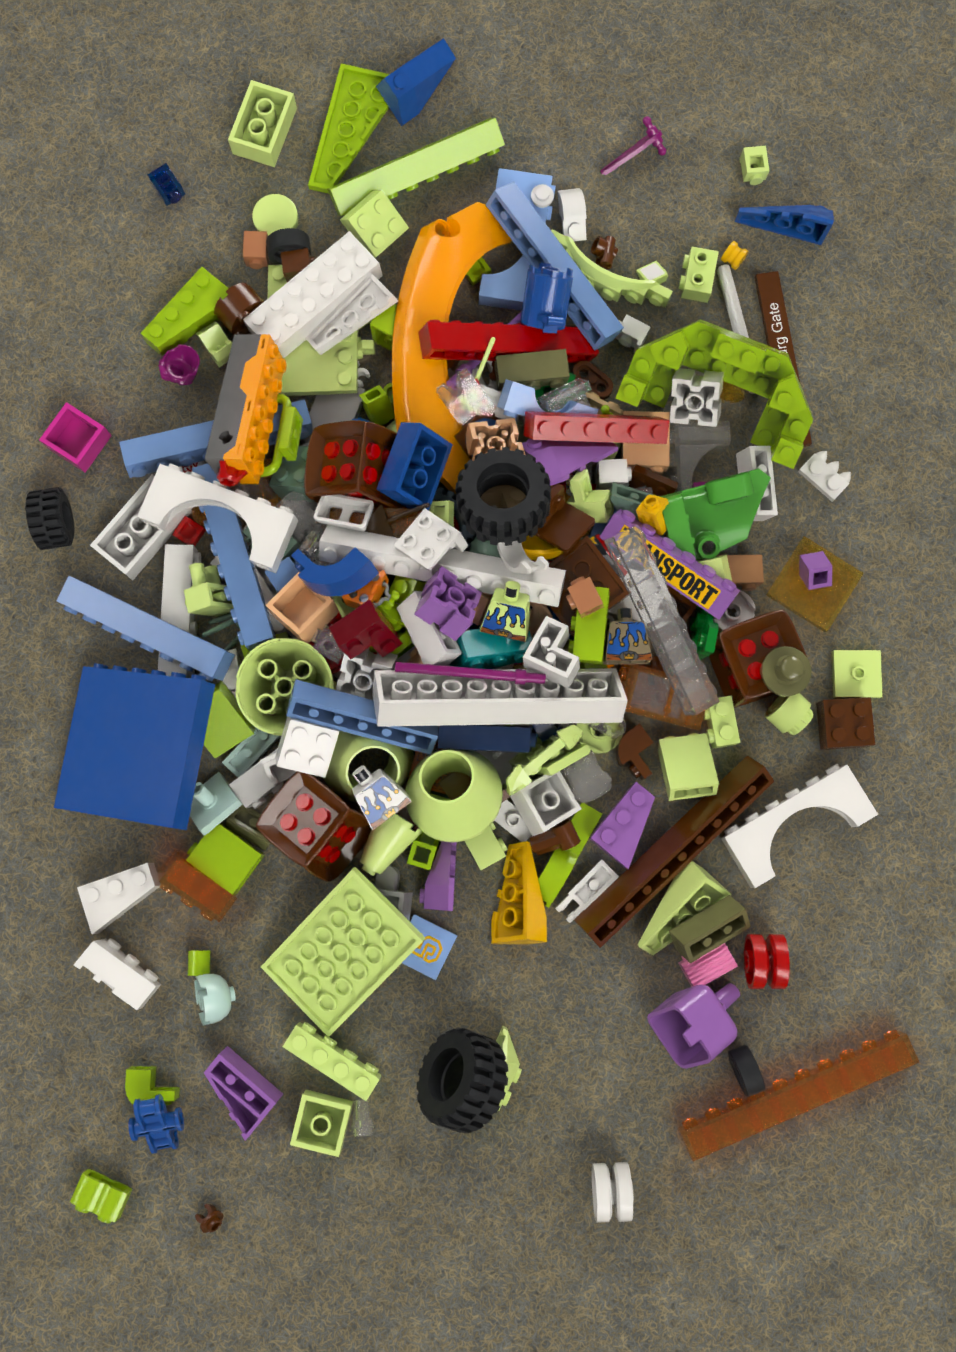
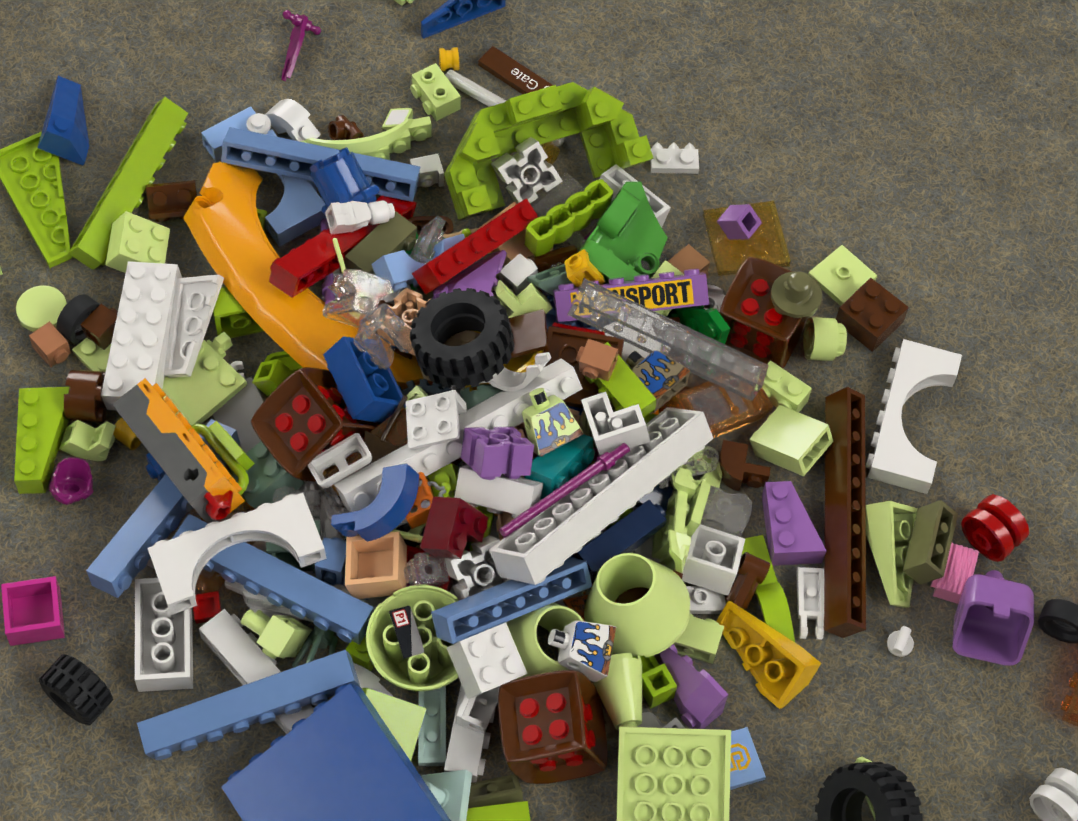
camera: 45 degrees left, 20 degrees down
(276, 674) = (406, 631): none -> sticker
(431, 203) = (170, 199): none -> reddish brown bracket
(451, 445) = (377, 346): none -> clear piece
(530, 332) = (355, 215): none -> white piece
(619, 975) = (900, 642): none -> white plate
(695, 461) = (568, 217): none -> lime brick

